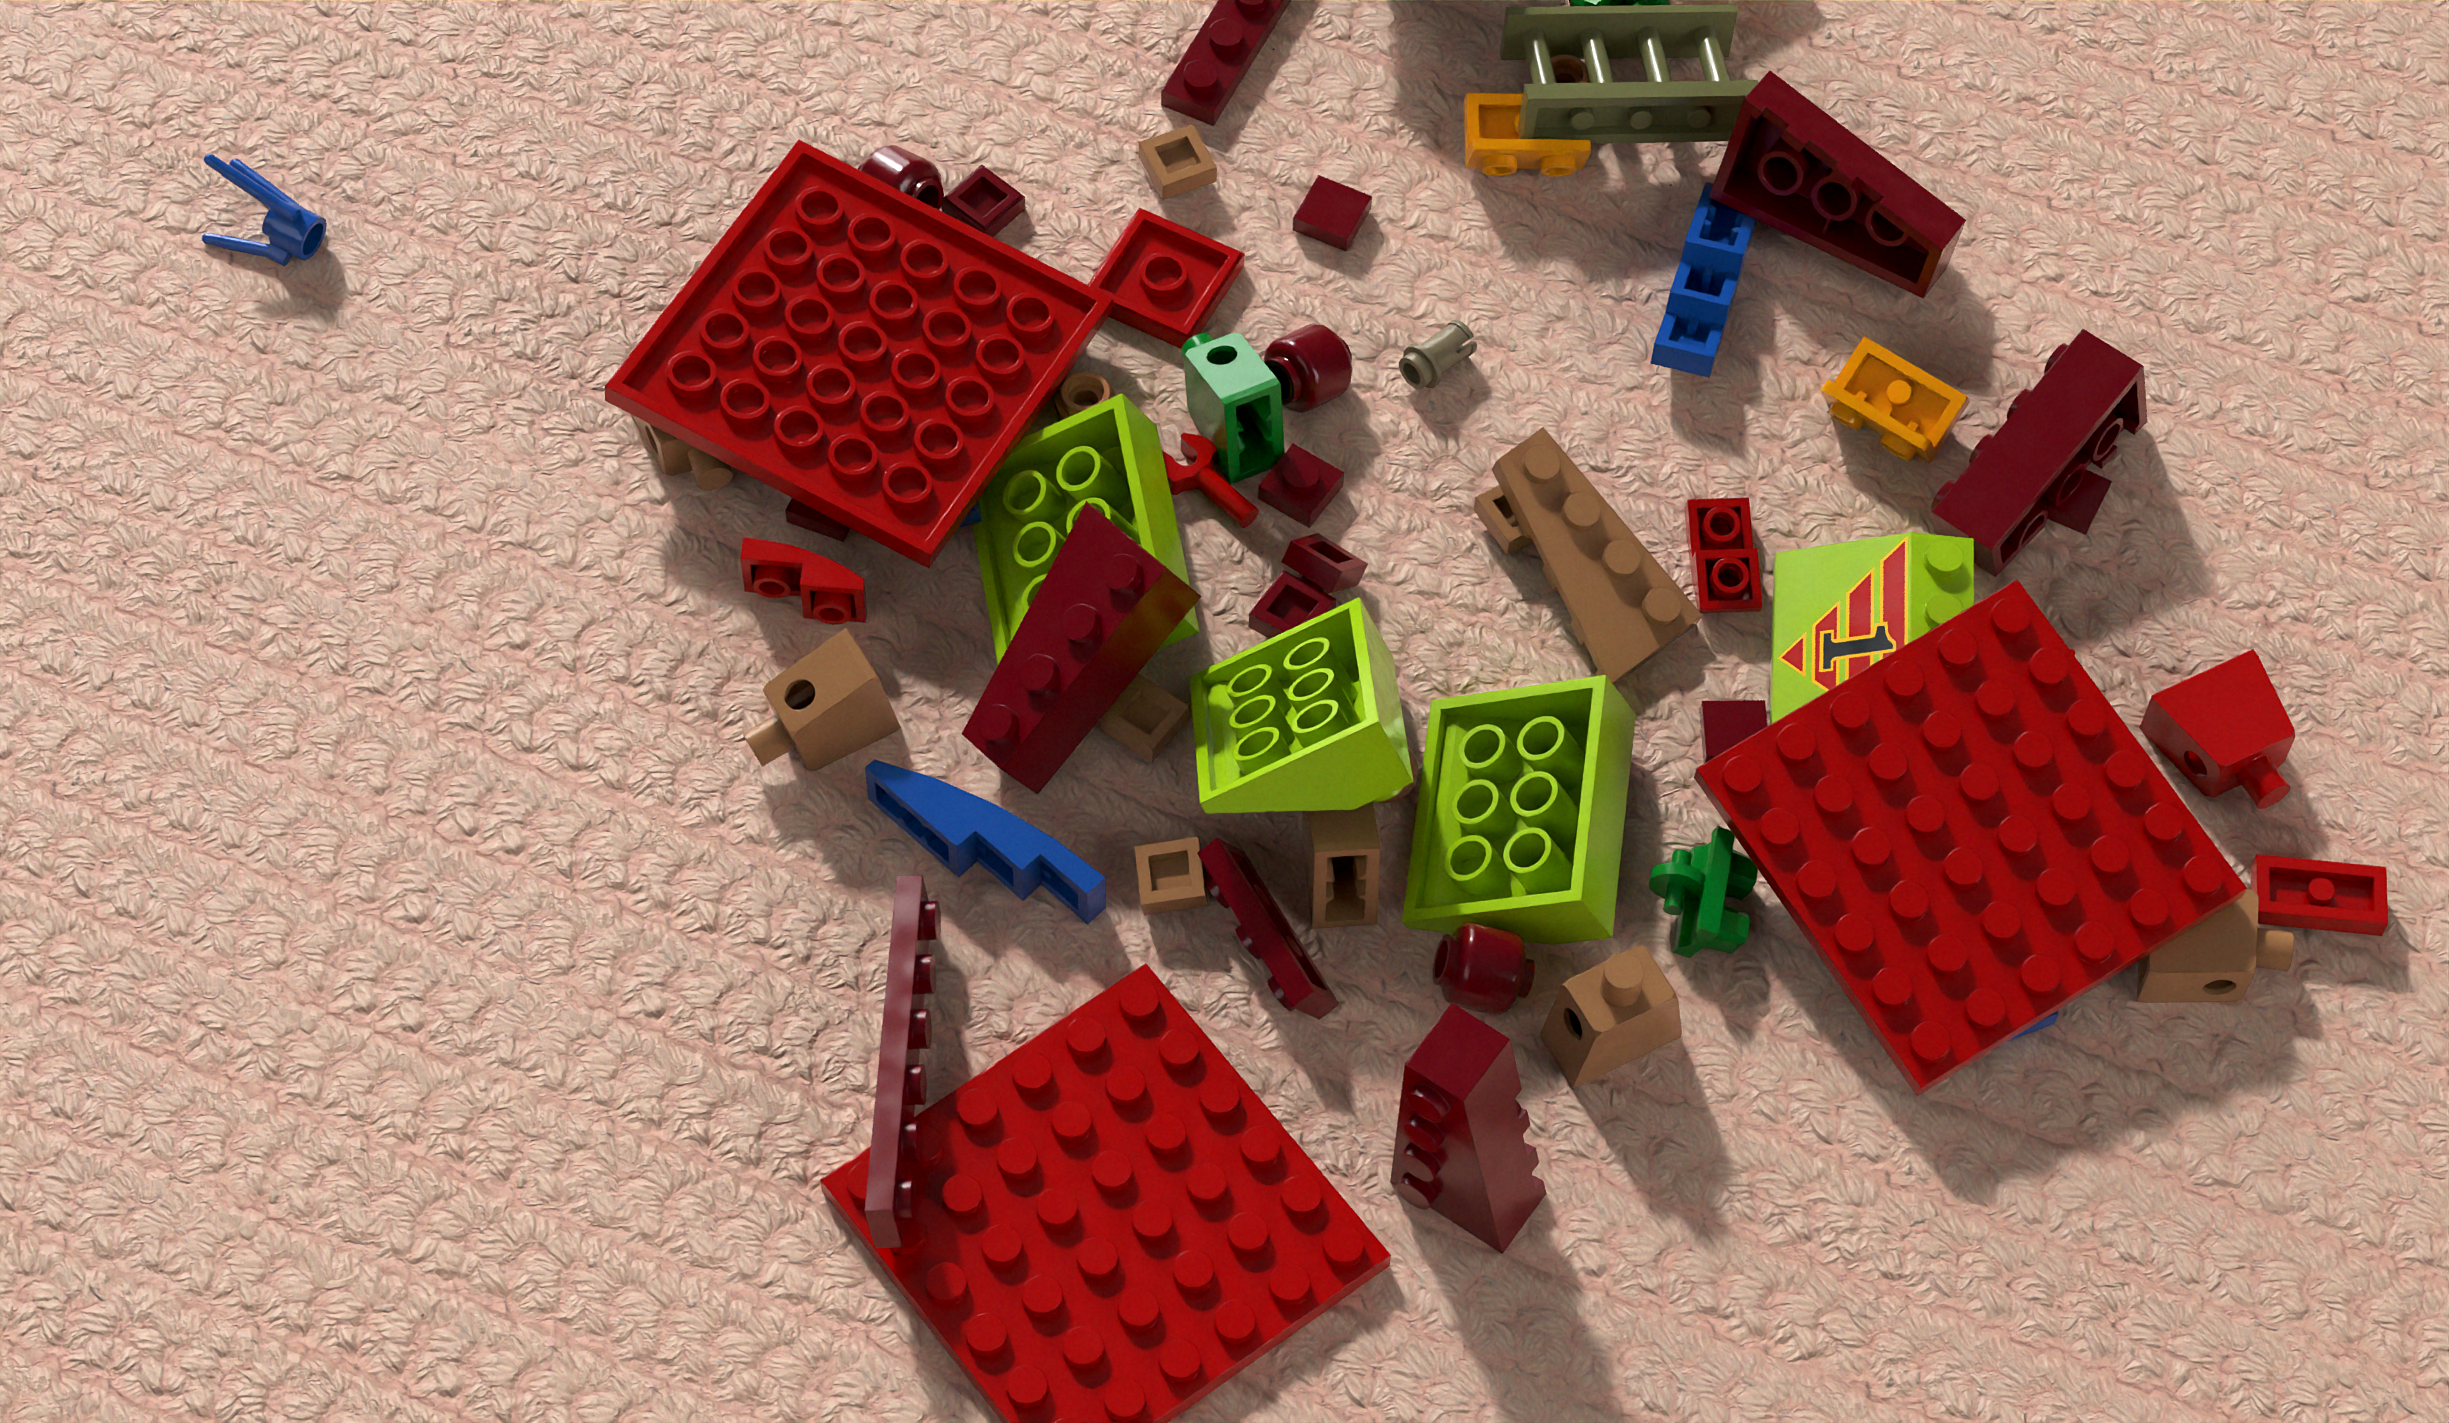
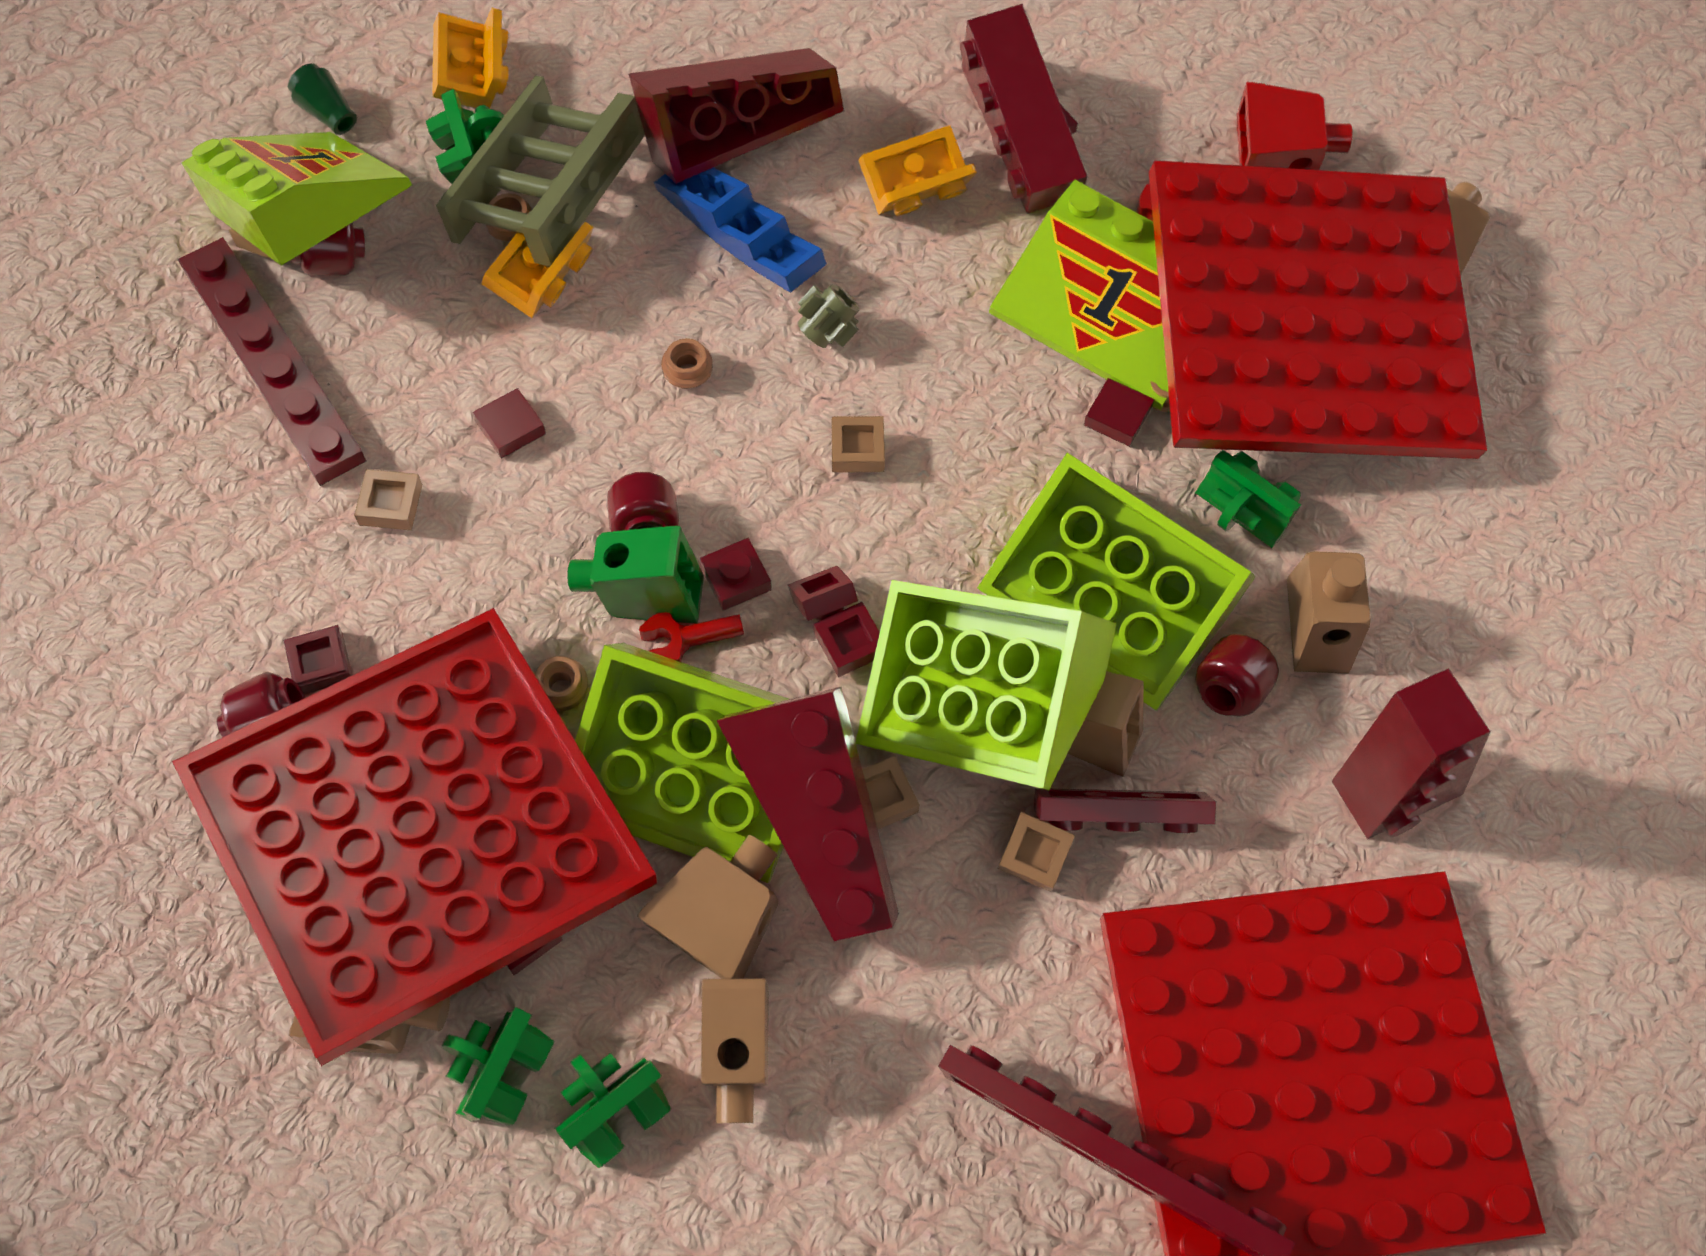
camera: 60 degrees left, 5 degrees up
(666, 546) = (486, 1094): none -> green hips
(735, 659) = (588, 1125): none -> green hips
(825, 587) = (608, 979): red slope -> none
(937, 636) = (717, 908): none -> medium nougat torso
(971, 830) = (907, 987): blue slope -> none
(1166, 277) = (484, 566): red tile -> none
(1426, 363) = (688, 431): dark tan pin -> none
(1509, 309) = (686, 352): none -> nougat plate
(1606, 577) = (933, 415): medium nougat wing -> none
(1646, 409) = (828, 316): none -> olive gear
(1723, 555) = (976, 345): red slope -> none
(2320, 894) = (1435, 148): red plate -> none

